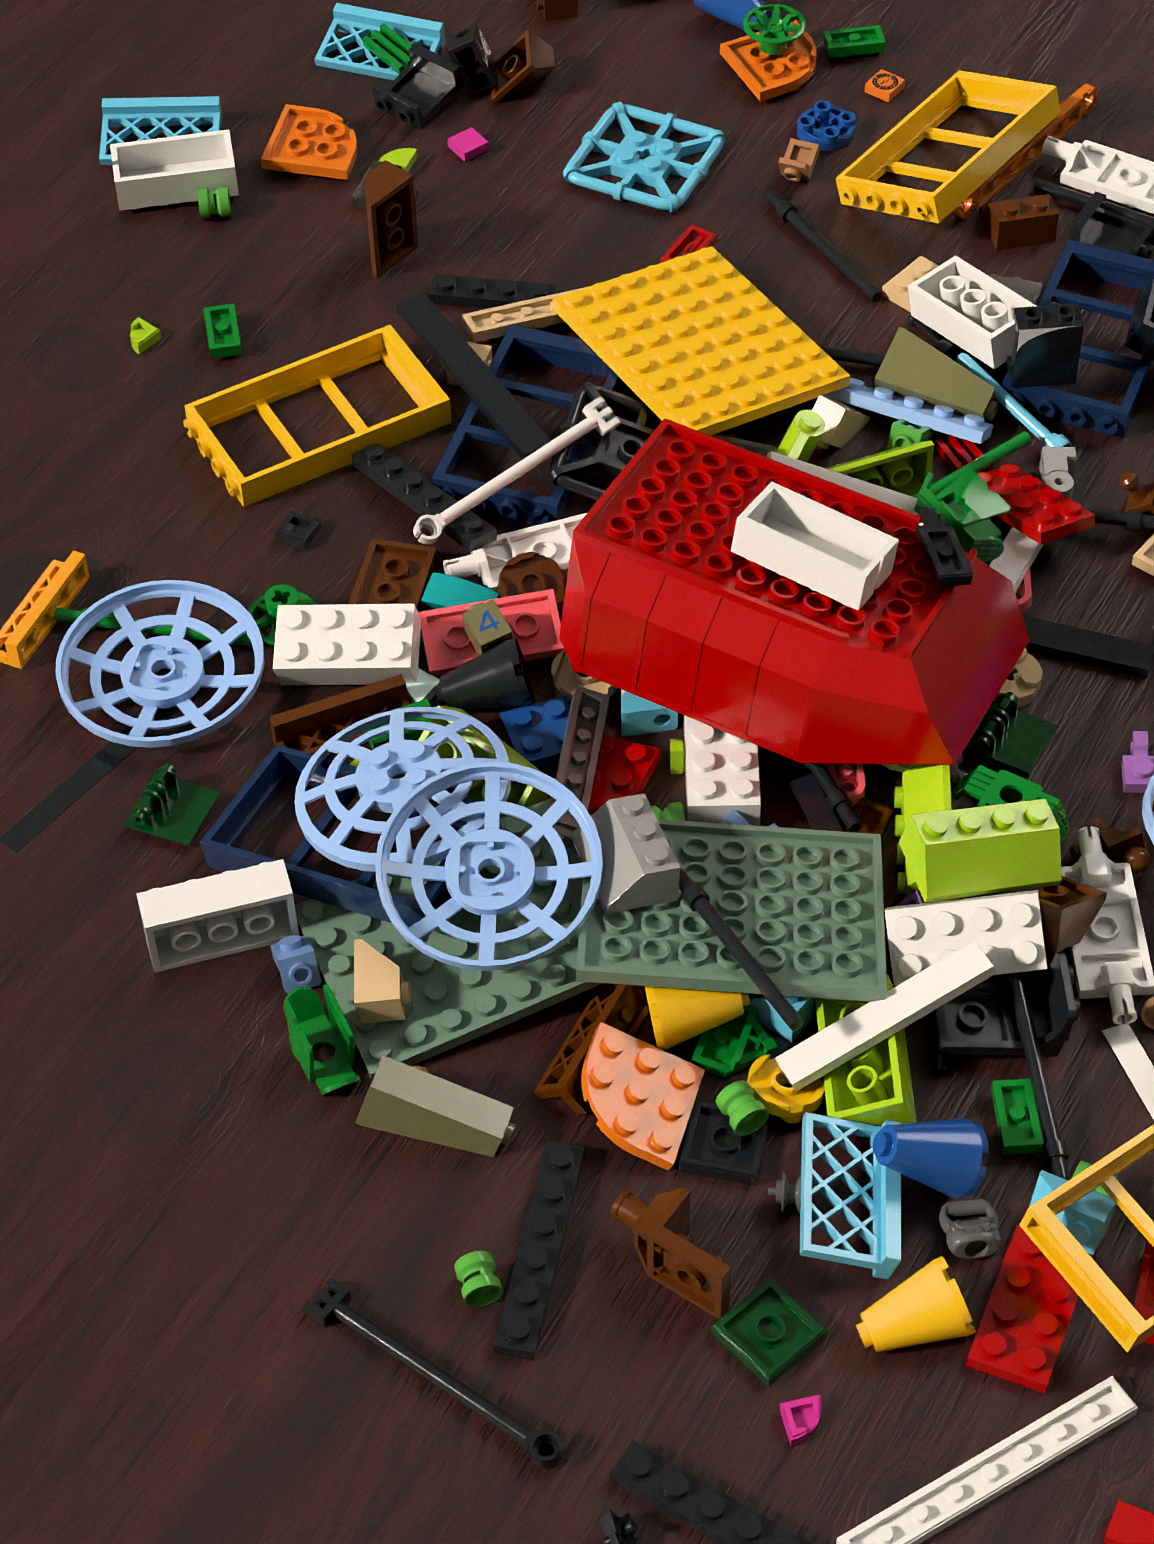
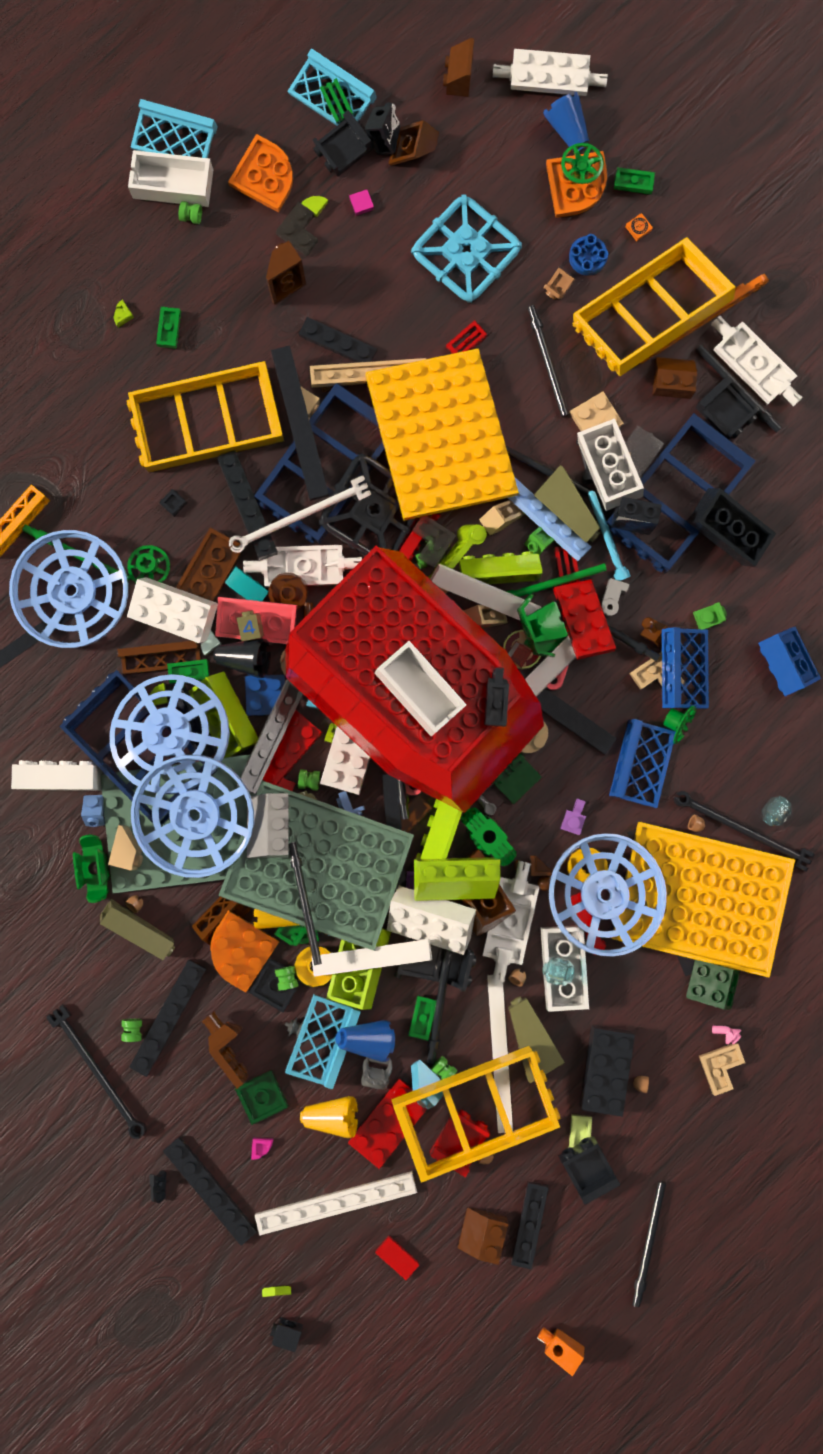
camera: 15 degrees right, 35 degrees up
(172, 807) = (55, 687): dark green hinge -> none

